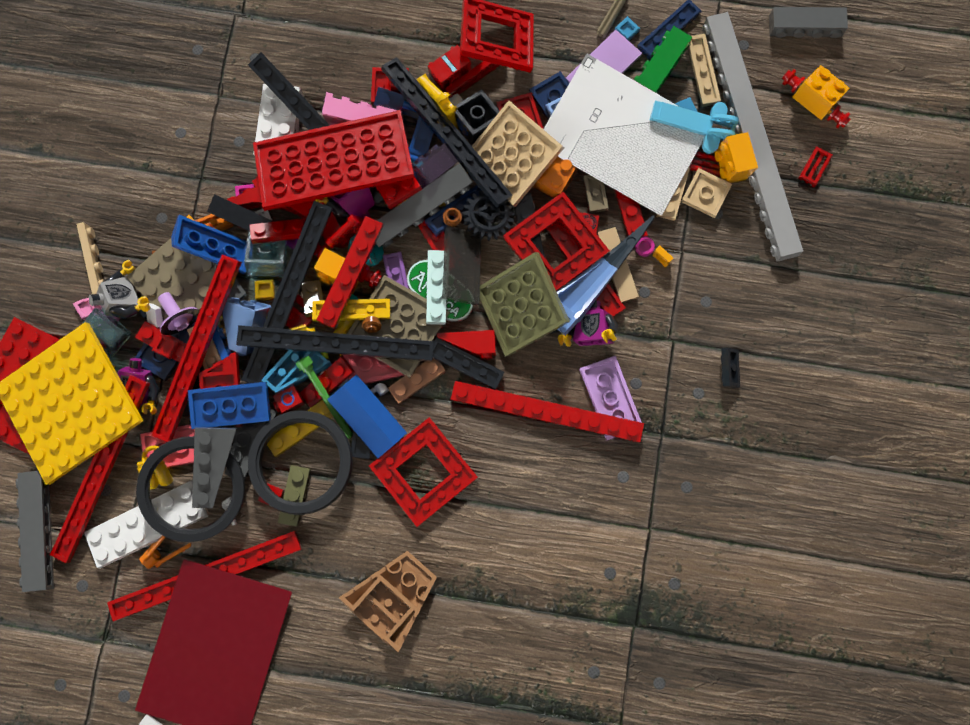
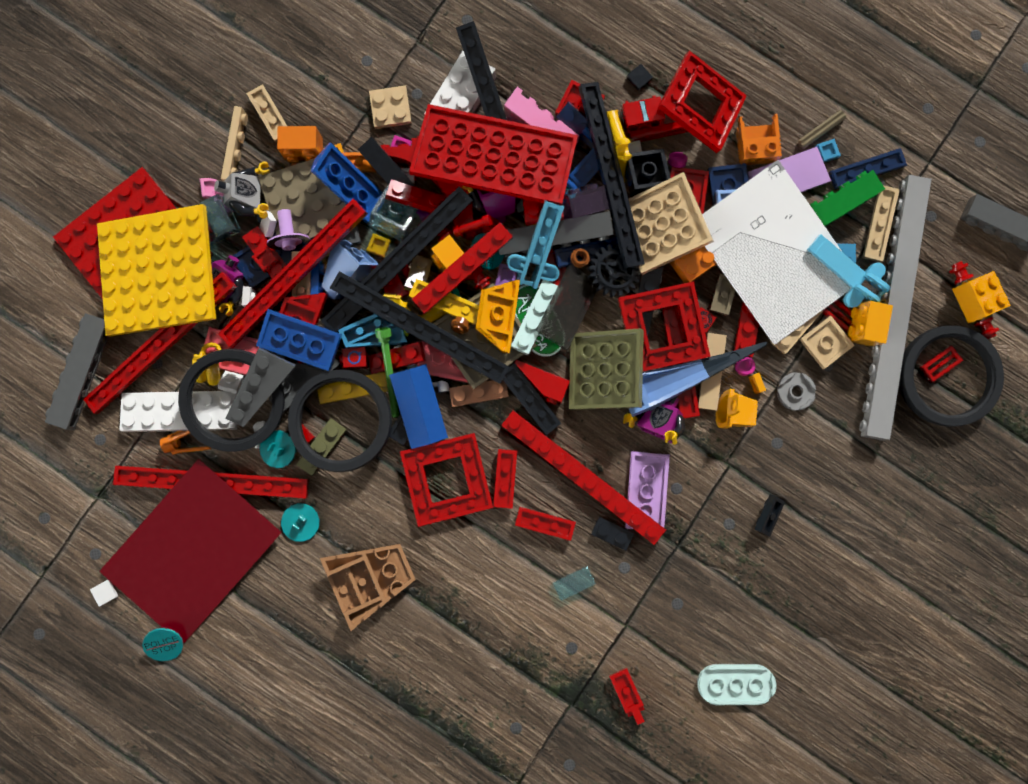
camera: 20 degrees right, 5 degrees up
(111, 217) = (266, 110): none -> tan plate
(150, 230) = (299, 143): none -> orange brick
(163, 387) = (247, 295): none -> white plate
(182, 475) = (230, 382): none -> white plate
(220, 163) = (390, 107): none -> tan plate
(254, 516) = (278, 449): none -> teal piece
(305, 575) = (300, 522): none -> teal piece
(401, 299) = (497, 314): none -> light orange wing
(411, 224) = (539, 248): none -> medium azure piece
(431, 39) = (639, 77): none -> black tile
(477, 446) = (505, 478): none -> red plate
(499, 94) = (677, 159): none -> dark pink tile
(532, 469) = (545, 523): none -> red plate
(563, 49) = (758, 143): none -> orange piece
(584, 512) = (574, 583): none -> clear light blue tile
(597, 451) = (612, 533): none -> black plate
(655, 288) = (735, 410): none -> light orange container
(681, 591) = (628, 694): none -> red hinge
(697, 258) = (807, 388): none -> light grey tile
(775, 535) = (736, 684): none -> light aqua tile
(852, 139) = (993, 366): none -> black tyre

